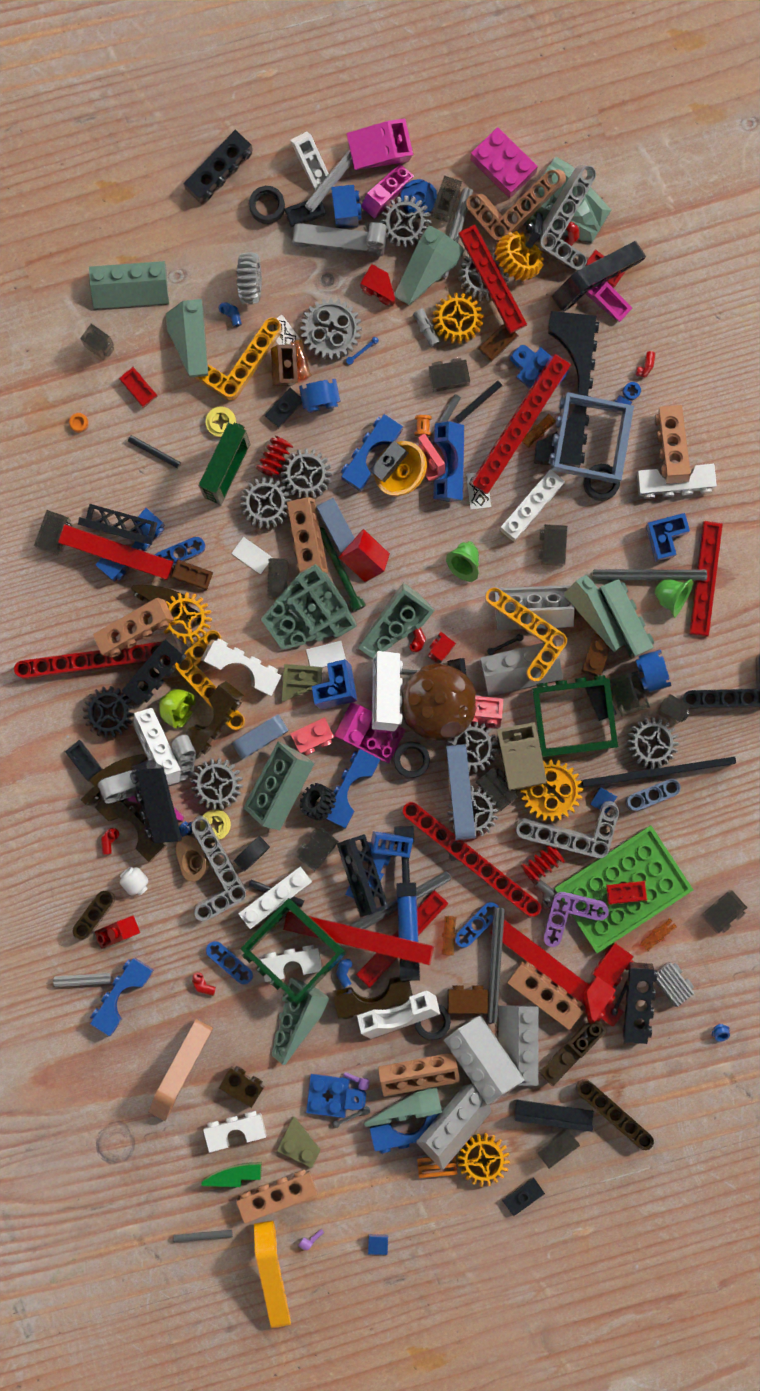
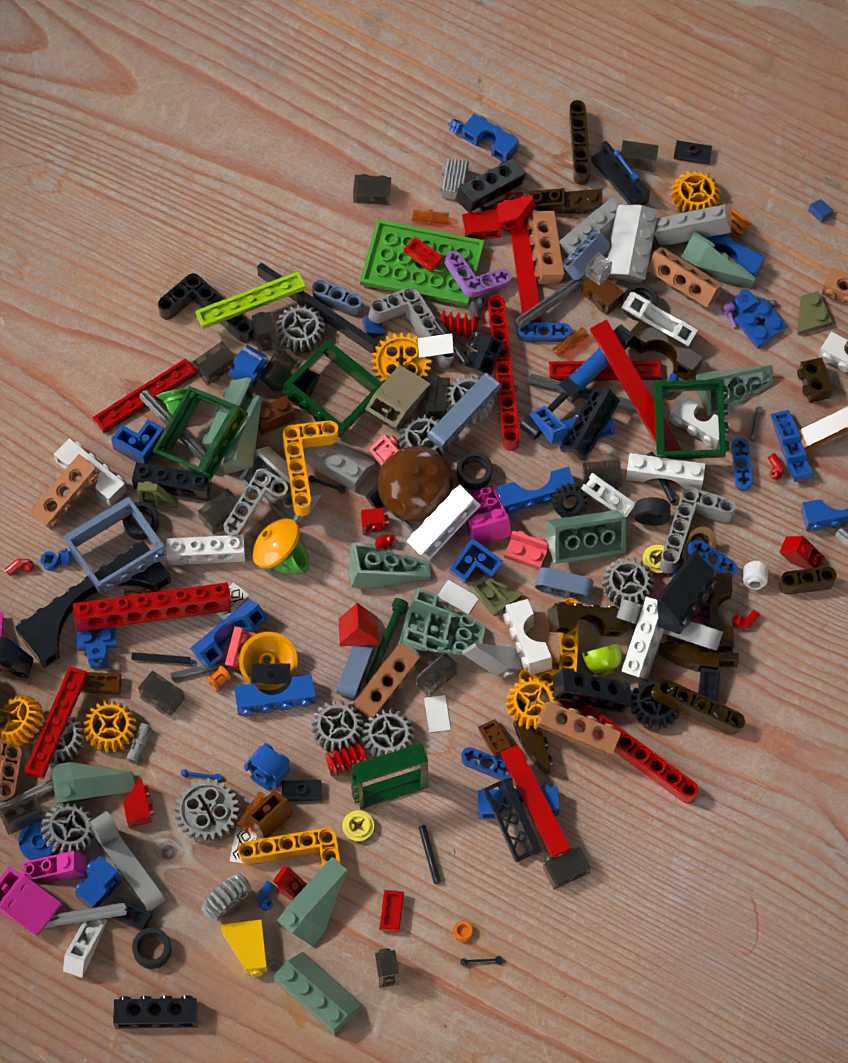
camera: 135 degrees left, 20 degrees down
(36, 427) = (498, 960): none -> black hinge
(65, 738) = (689, 707): none -> dark brown beam
(167, 860) = (720, 558): none -> blue beam
(206, 268) = (247, 944): none -> yellow slope
(208, 1014) = (791, 445): none -> blue slope
(220, 335) = (289, 883): none -> red slope
(244, 627) = (496, 659): none -> light grey slope
(260, 1021) = (758, 411): none -> dark grey hinge
(294, 834) = (608, 495): none -> white plate
(483, 1009) = (598, 268): none -> clear brick
(487, 557) = (275, 543): none -> light orange dish
(499, 854) = (486, 346): none -> black legs
(506, 1015) = (577, 260): none -> sand blue beam
(531, 840) = (458, 351): none -> black bar
(533, 563) = (251, 505): none -> light grey beam
(537, 824) = (435, 345): none -> white sticker
(571, 1127) = (634, 176): none -> blue hinge
(599, 584) = (220, 443): none -> dark green window
(611, 531) = (174, 481): none -> black brick
(613, 505) = (155, 495): none -> olive wing
(682, 652) = (214, 363): none -> clear smoke brick
(701, 1046) = (480, 129): none -> blue arch
(707, 721) = (250, 300): none -> lime plate

